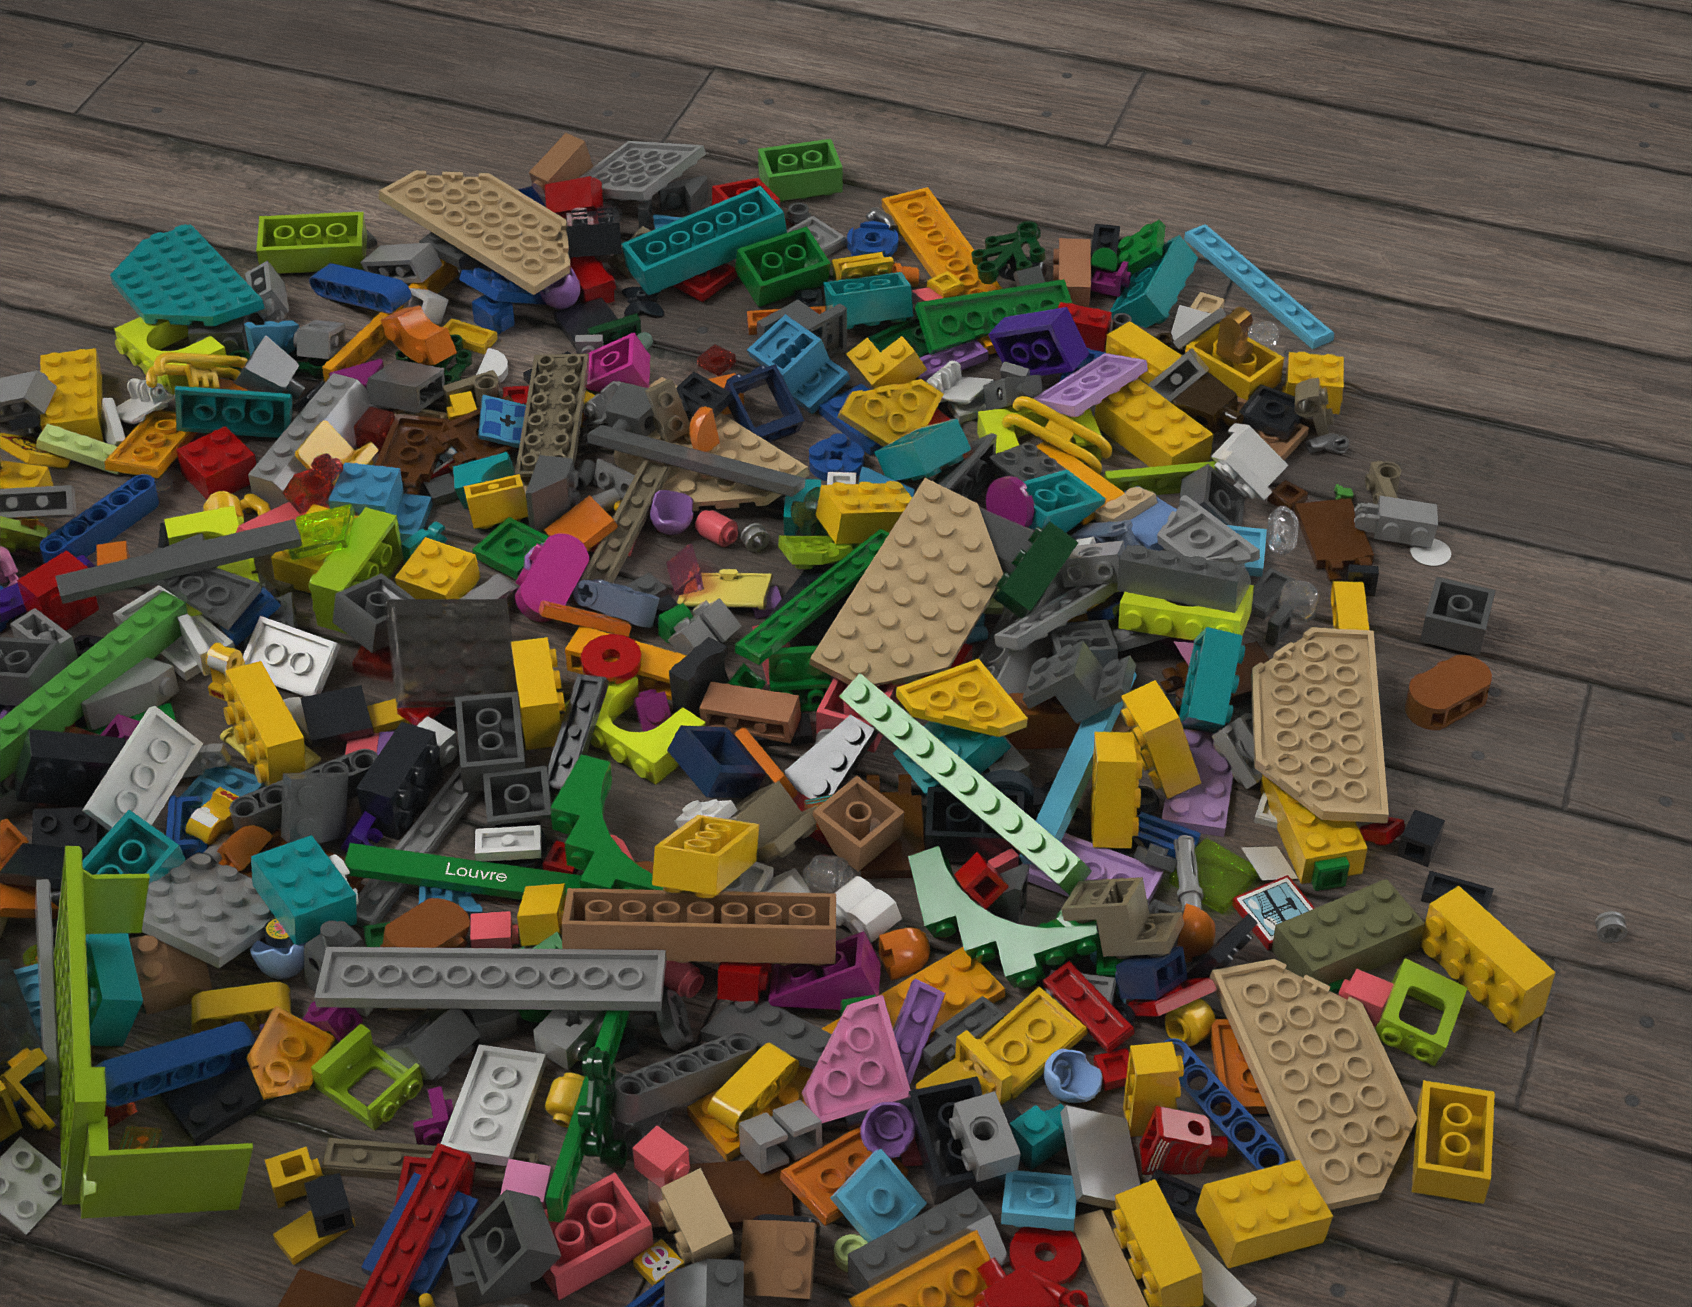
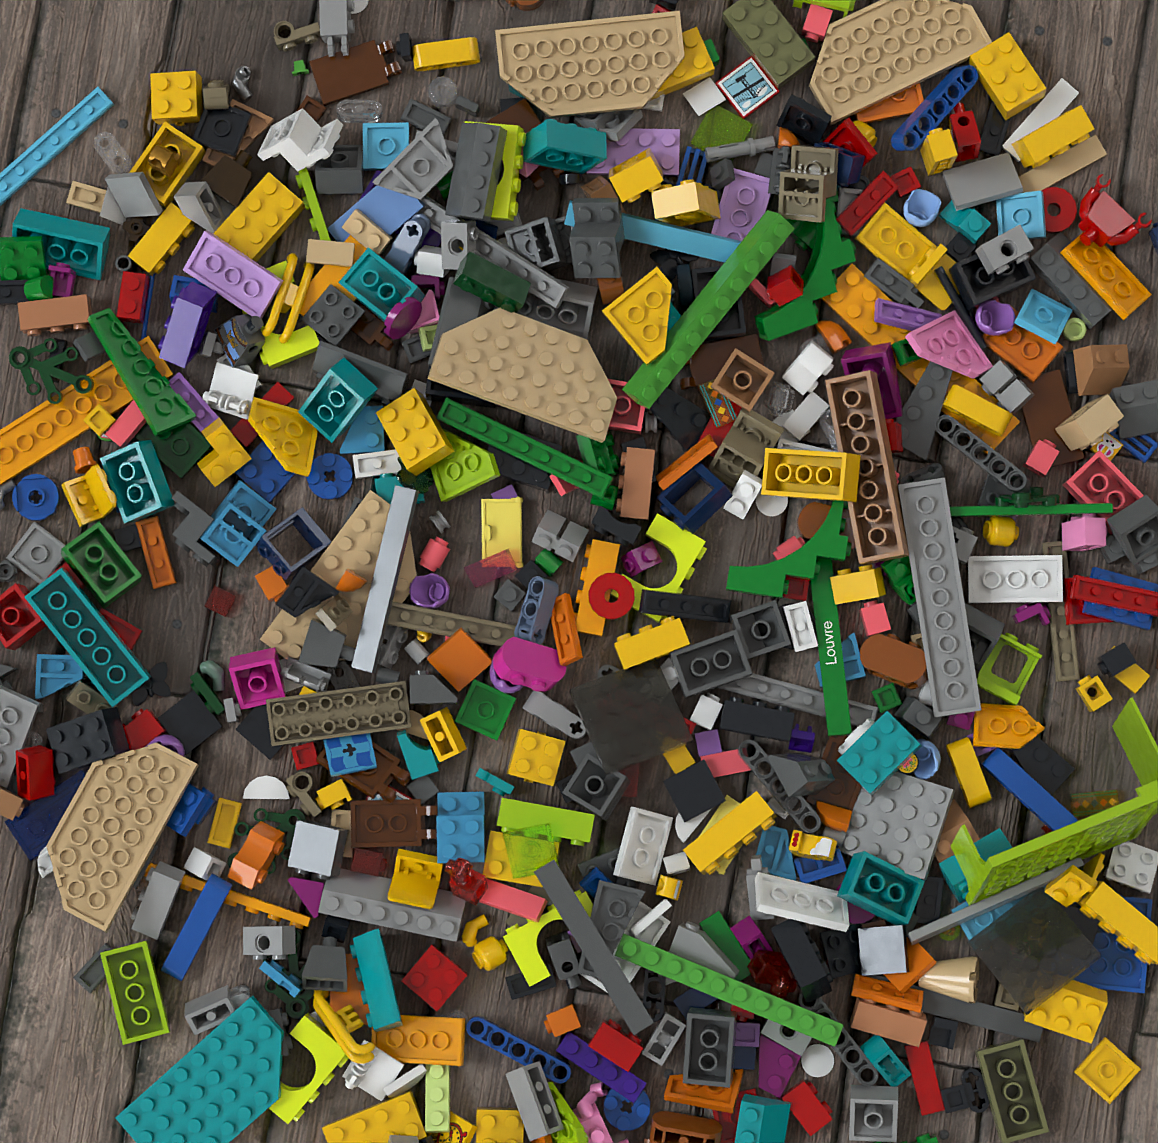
camera: 95 degrees left, 40 degrees up
(1105, 470) = (330, 253): none -> tan tile

